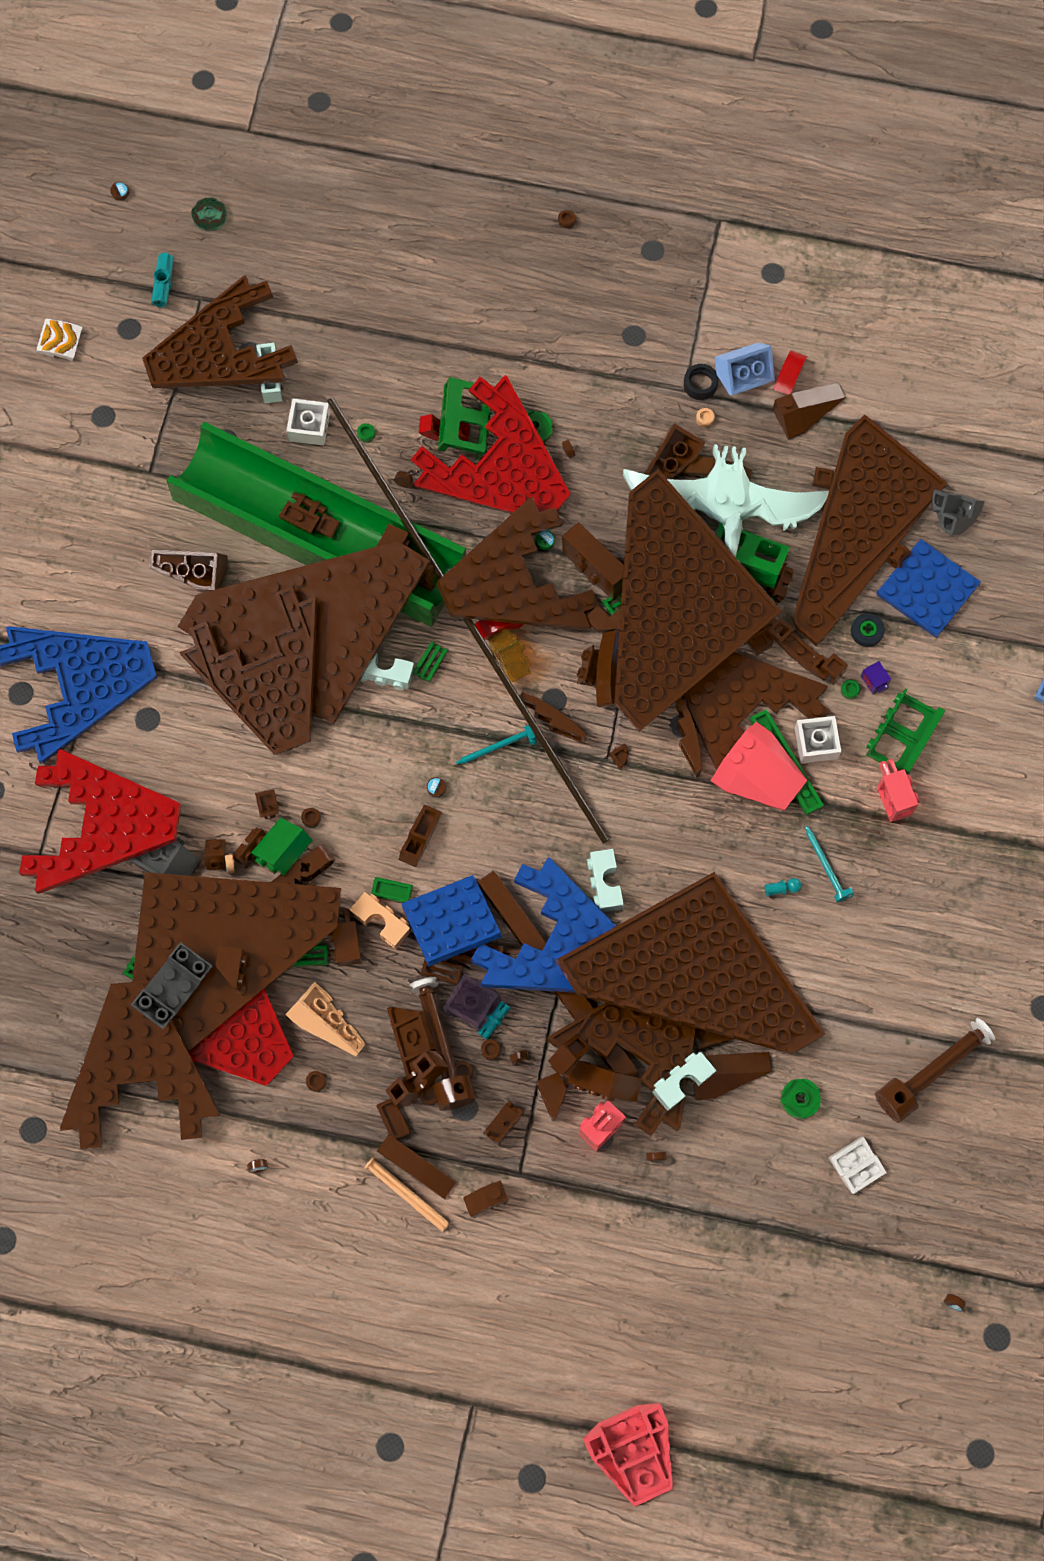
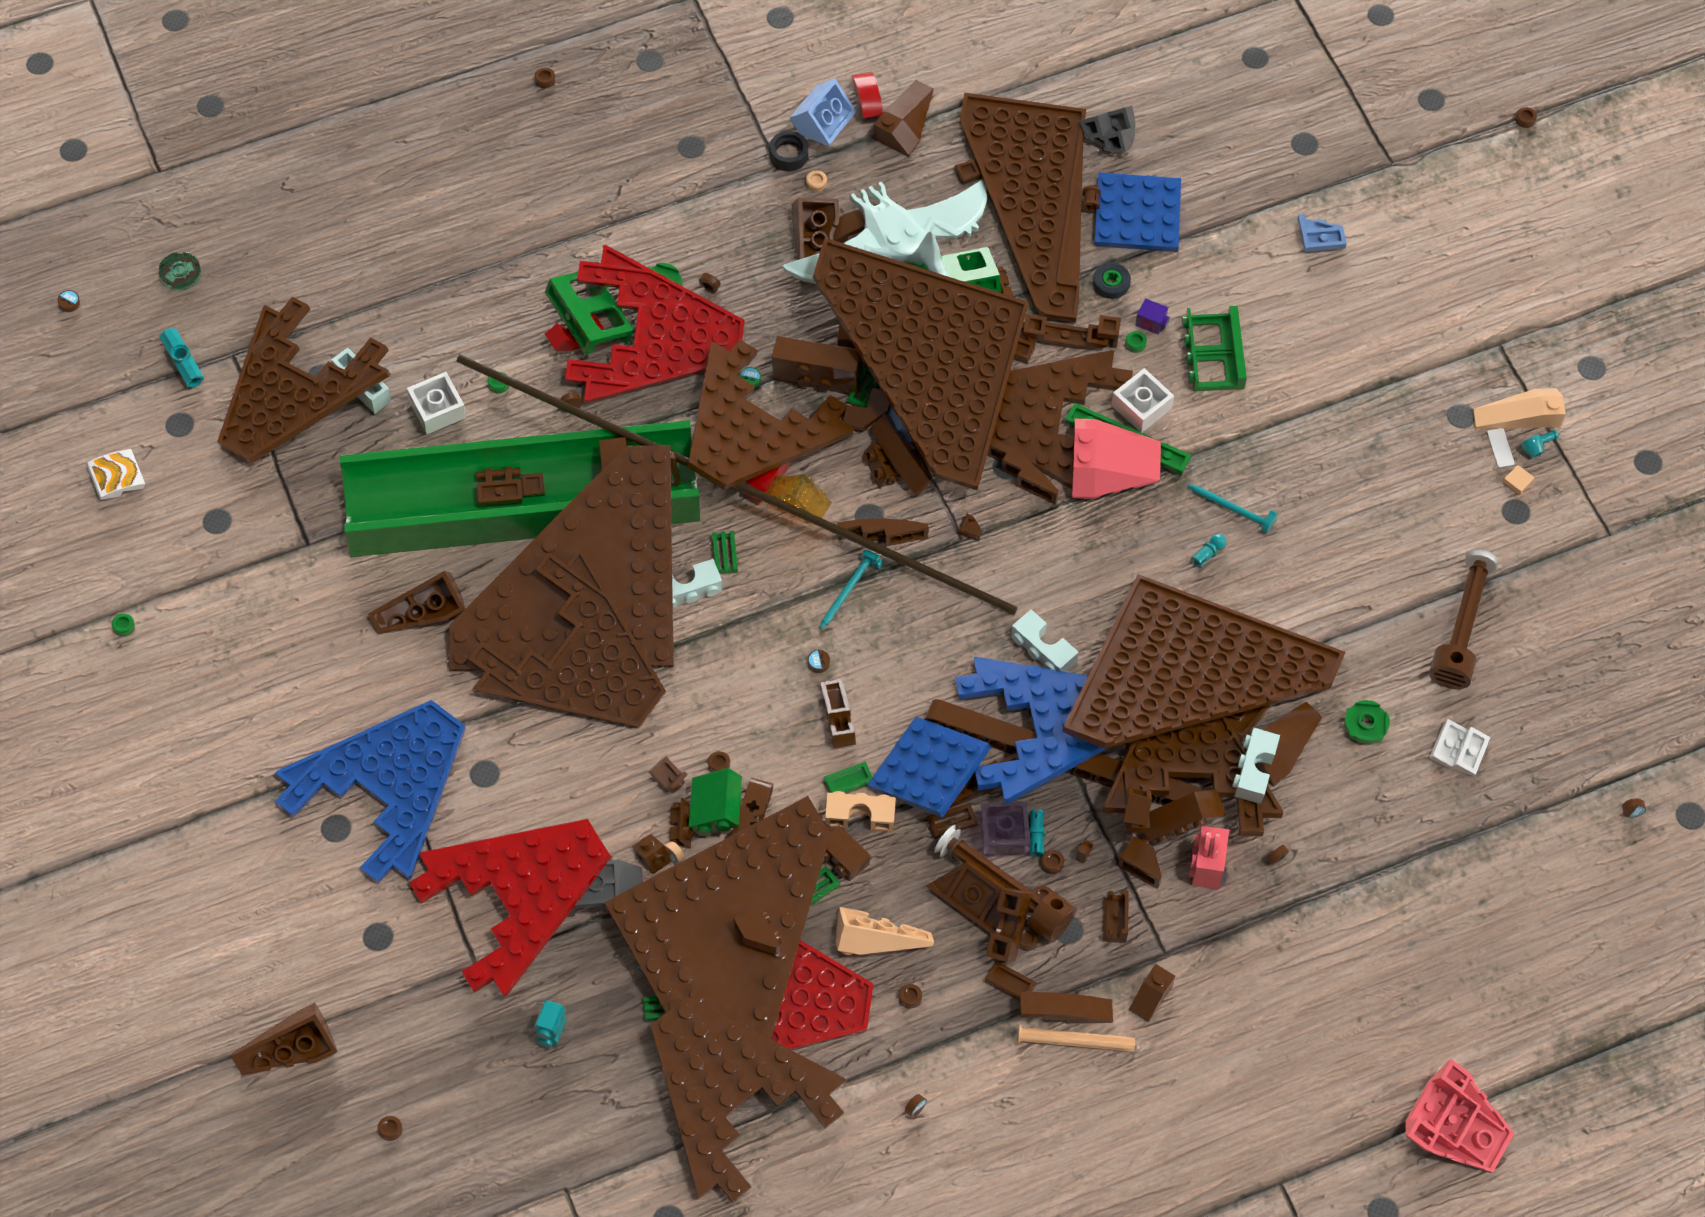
camera: 35 degrees left, 10 degrees down
(50, 935) = (550, 1024): none -> teal brick
(172, 986) = (715, 982): dark grey slope -> none
(896, 792) = (1248, 402): coral brick -> none

